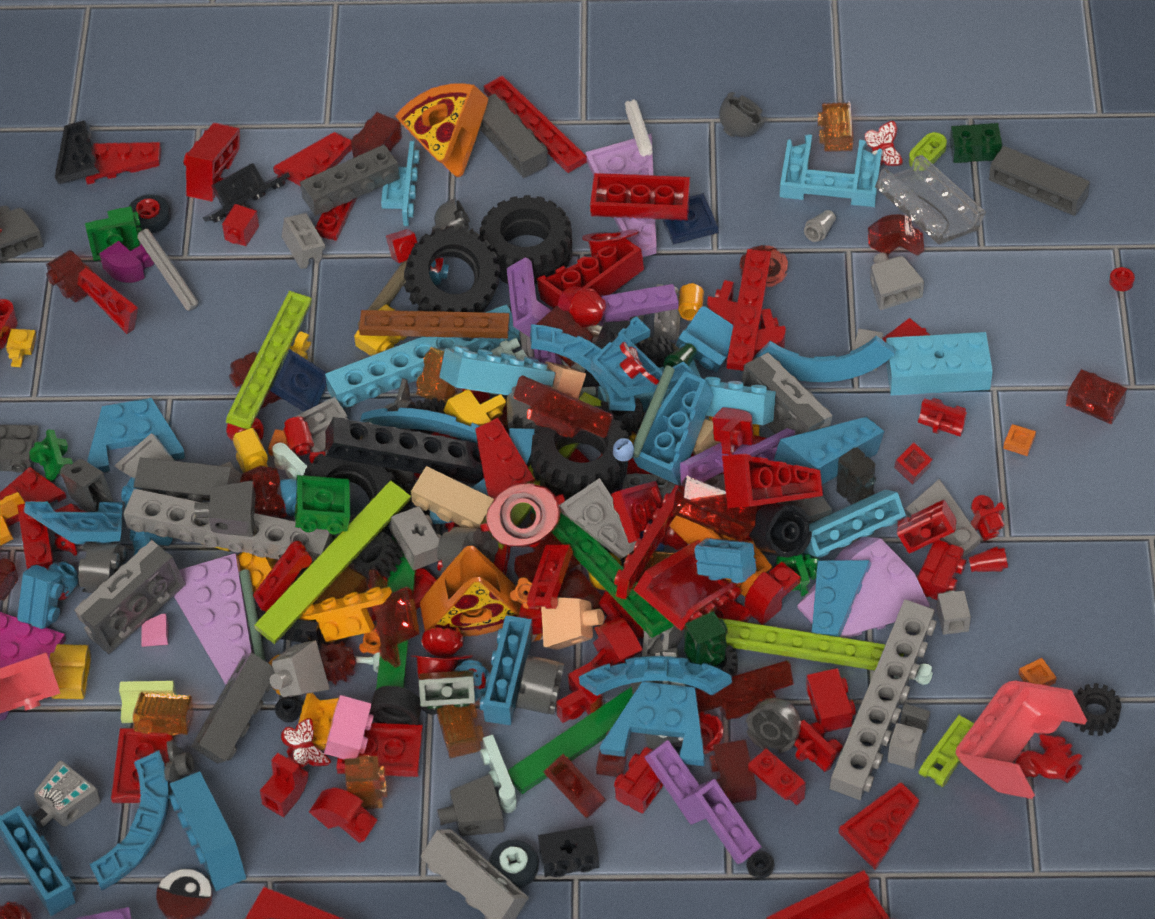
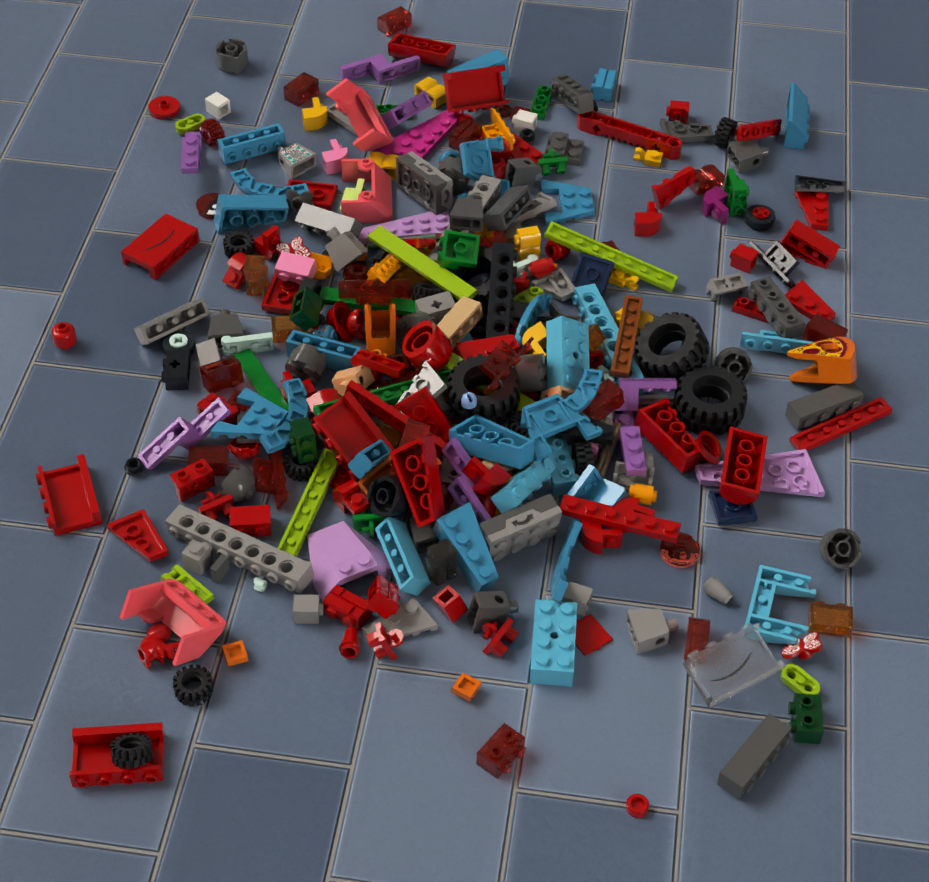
camera: 95 degrees right, 5 degrees down
(39, 597) = (436, 147): dark azure brick -> none
(57, 736) = (332, 159): none -> bright pink brick
(138, 666) = (372, 205): none -> coral windscreen
(155, 631) = (406, 205): bright pink slope -> none
(163, 714) = (336, 191): clear orange brick -> none
(167, 269) = (701, 217): light grey axle -> none
(174, 330) = (647, 222): none -> red brick
(288, 845) = (238, 238): none -> black tyre
(401, 244) = (715, 334): red brick -> none
(536, 812) = (208, 352): none -> light grey hinge
(583, 304) = (627, 413): red helmet -> none
(632, 364) = (543, 409): red animal -> none
(638, 128) = (829, 482): white axle -> none
(652, 410) = (503, 422): sand green bar -> none
(683, 354) = (568, 463): dark green cone -> none
(835, 592) = (337, 534): dark azure wing -> none
(913, 423) = (490, 607): none -> dark grey torso

